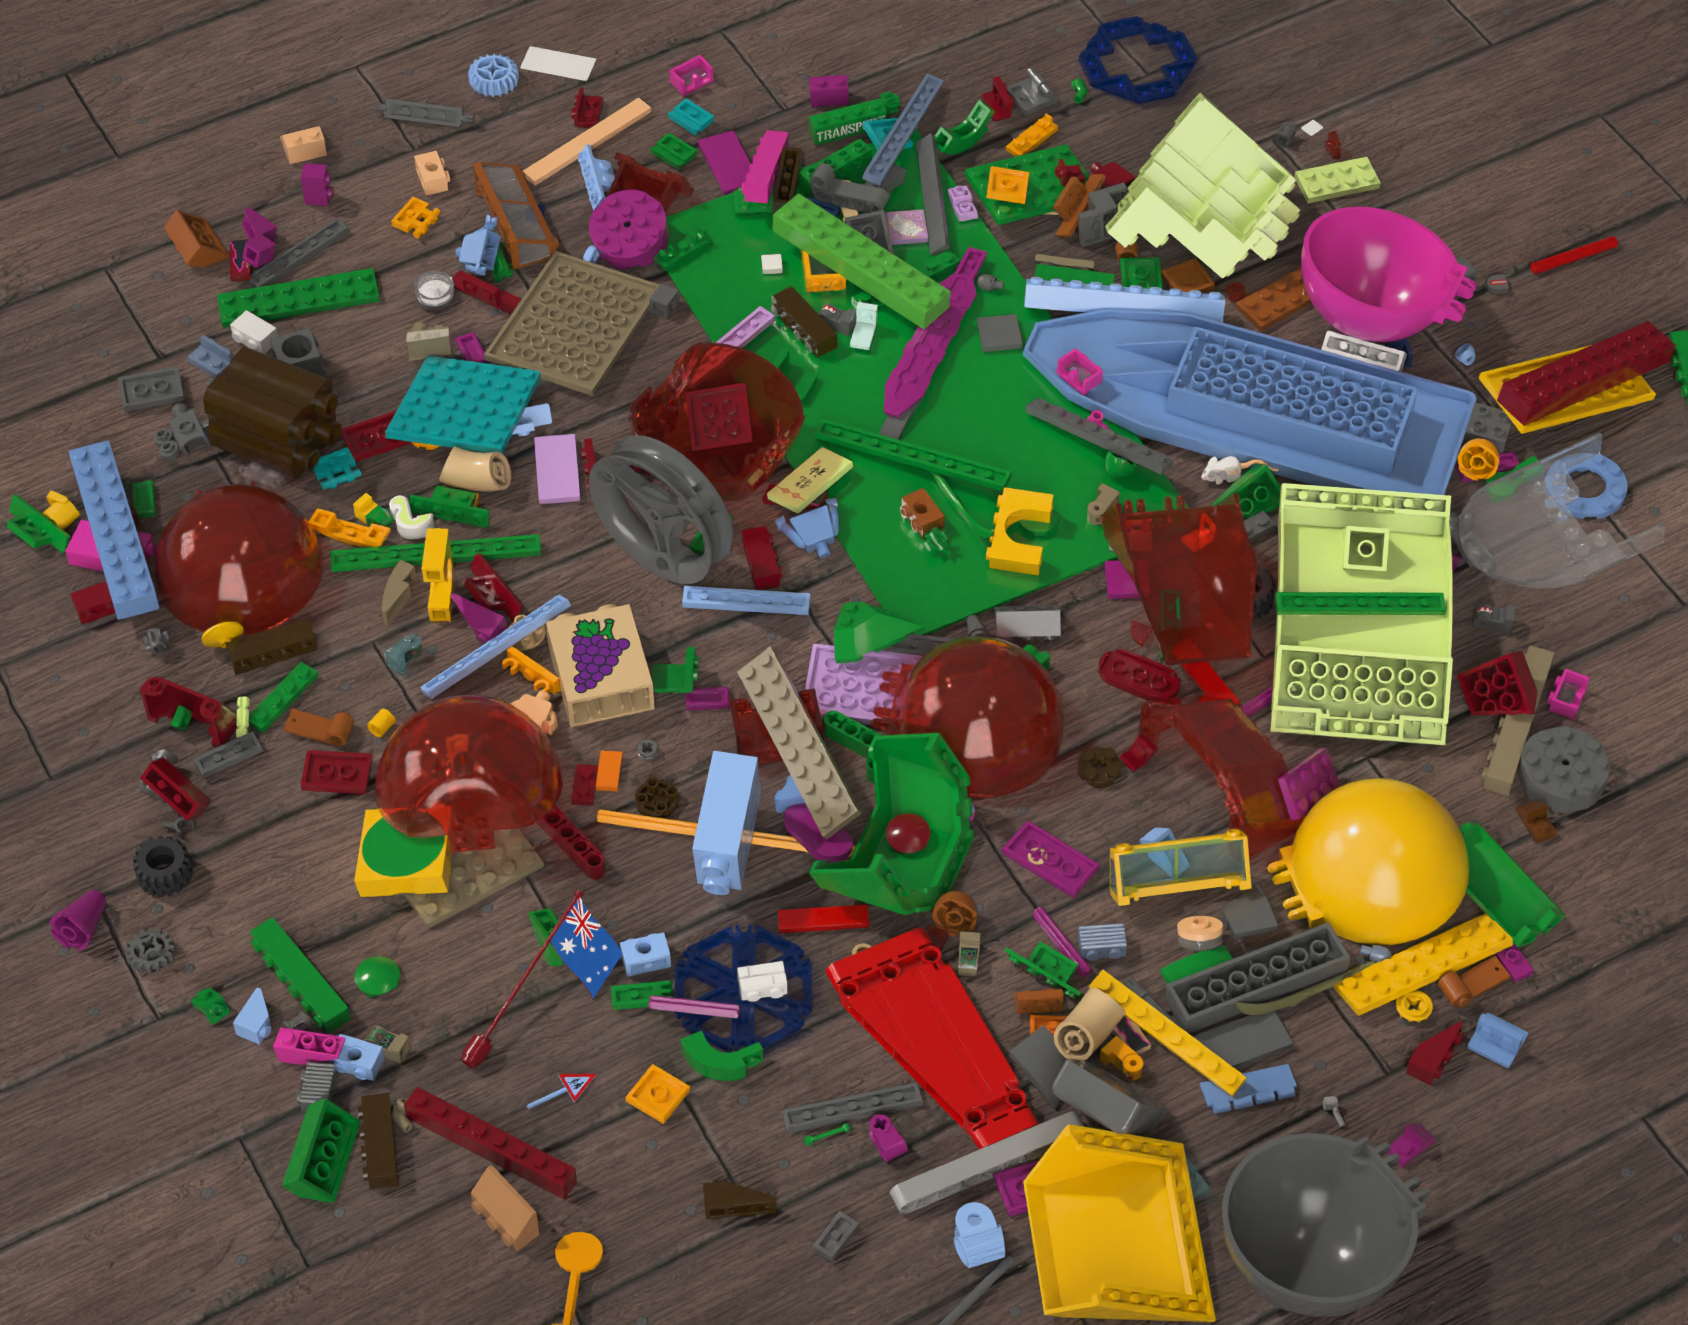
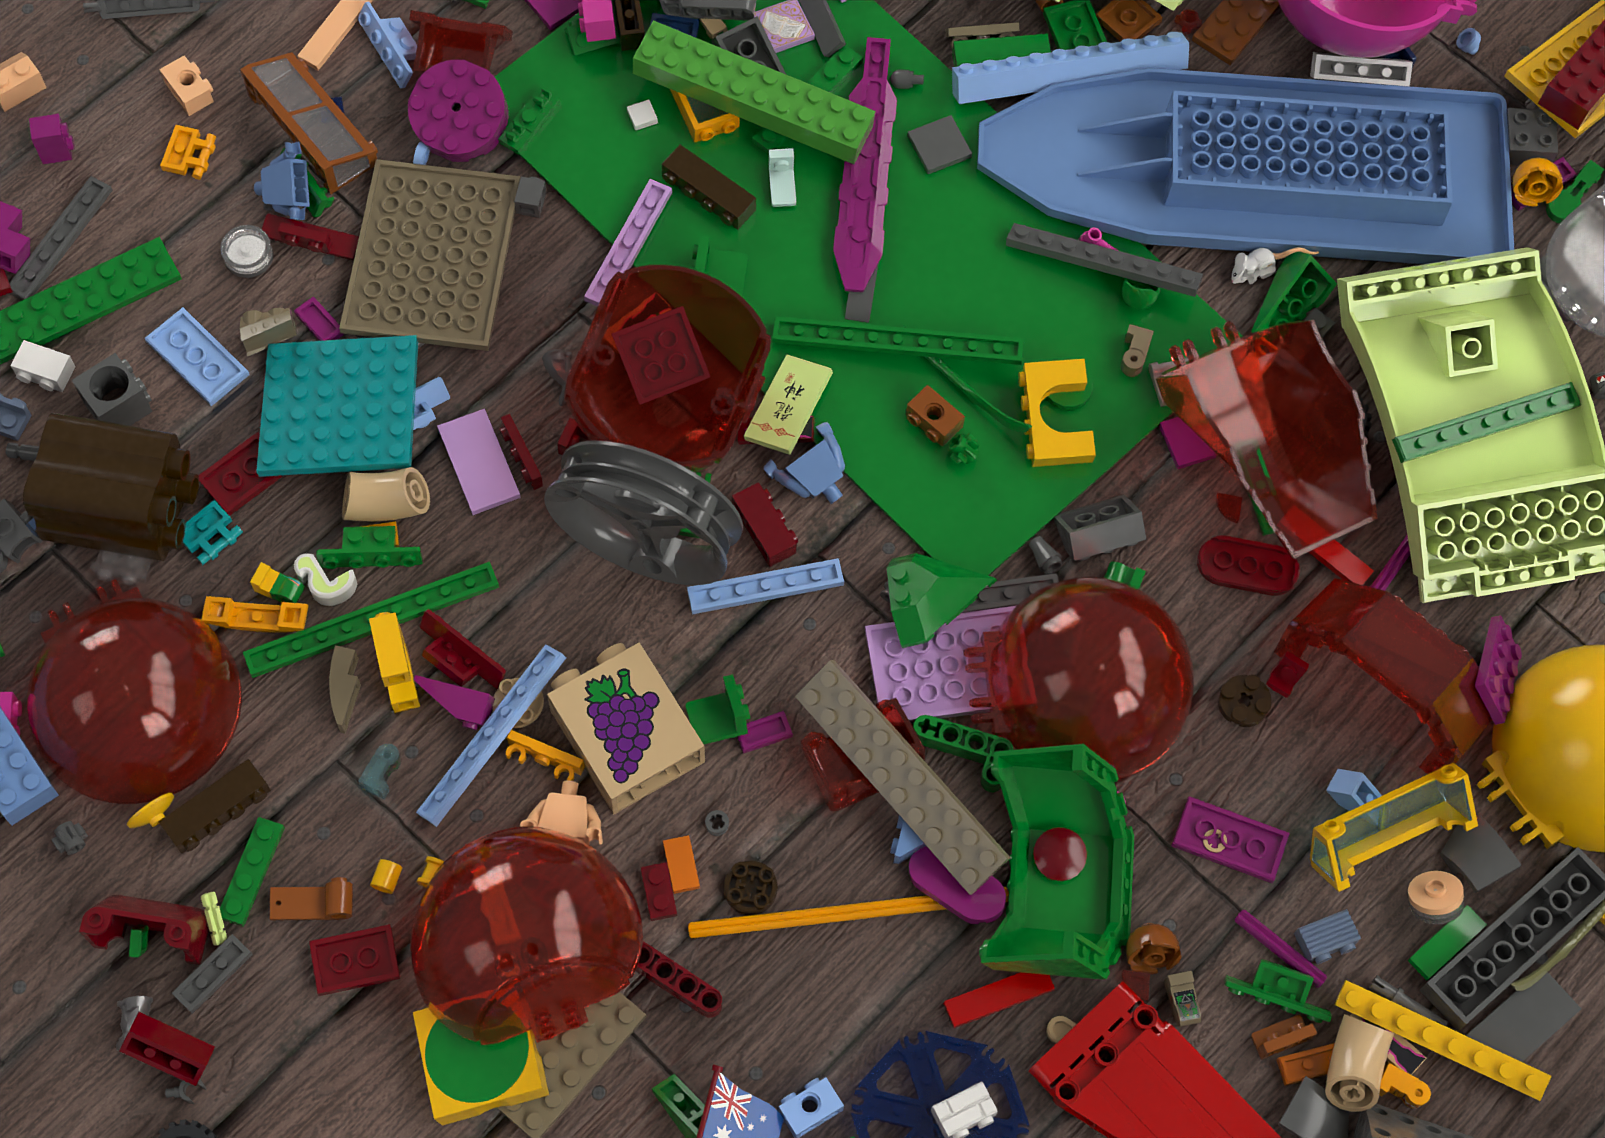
camera: 20 degrees left, 15 degrees up
(371, 353) = (197, 356): none -> light blue tile
(726, 822) = (861, 919): light blue brick -> none
(838, 319) = (746, 173): dark grey leg -> none
(1079, 371) = (1055, 179): dark pink window -> none
(1259, 1085) = (1566, 1069): medium blue windscreen -> none

